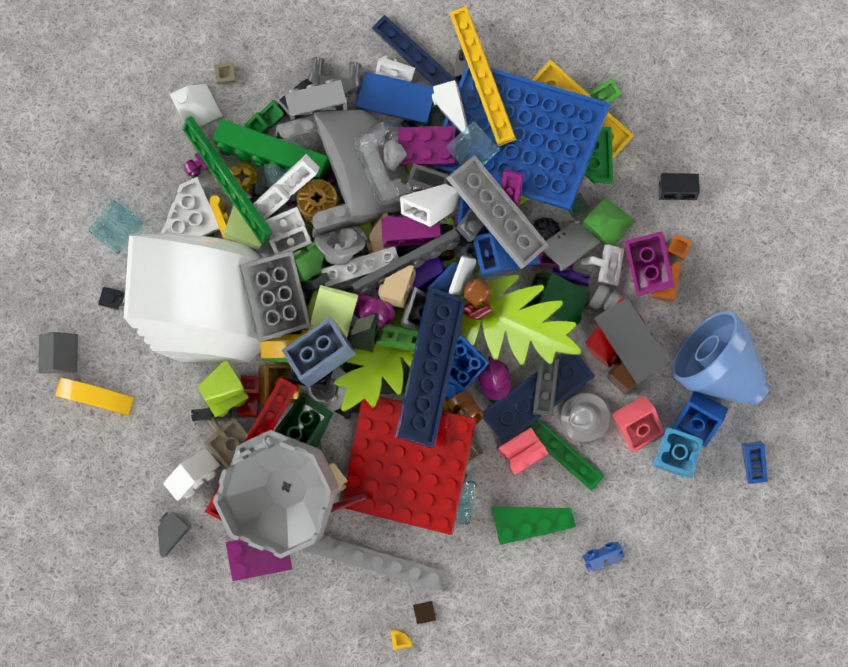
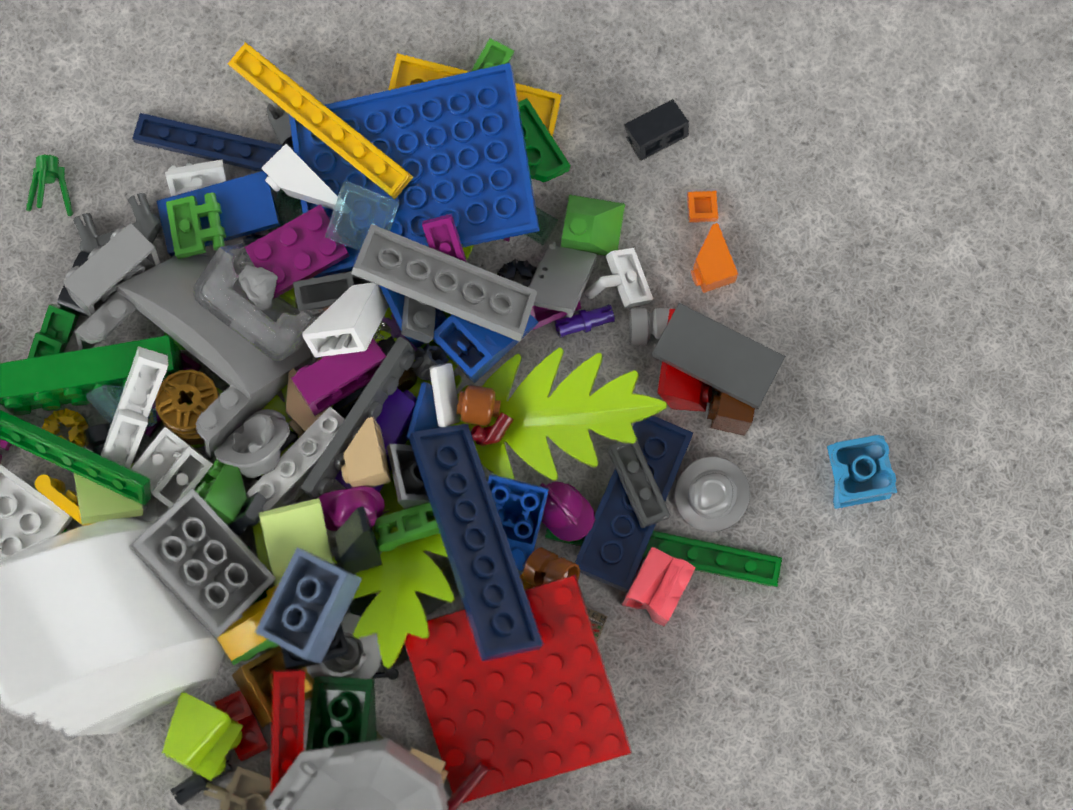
camera: 40 degrees left, 5 degrees down
(312, 21) = (46, 172): none -> green plant
(373, 97) = (186, 226): none -> bright green plate
(466, 506) = (626, 704): clear light blue piece -> none
(528, 522) = (716, 679): green wing -> none
(559, 289) = (581, 344): dark green slope -> none
(611, 551) = (850, 652): blue hinge -> none
(638, 423) = (785, 462): coral slope -> none
(649, 263) = (680, 246): magenta slope -> none
(700, 417) = (860, 408): blue slope -> none
(721, 361) = (845, 318): medium blue cone -> none
(761, 453) = (954, 434): blue slope -> none

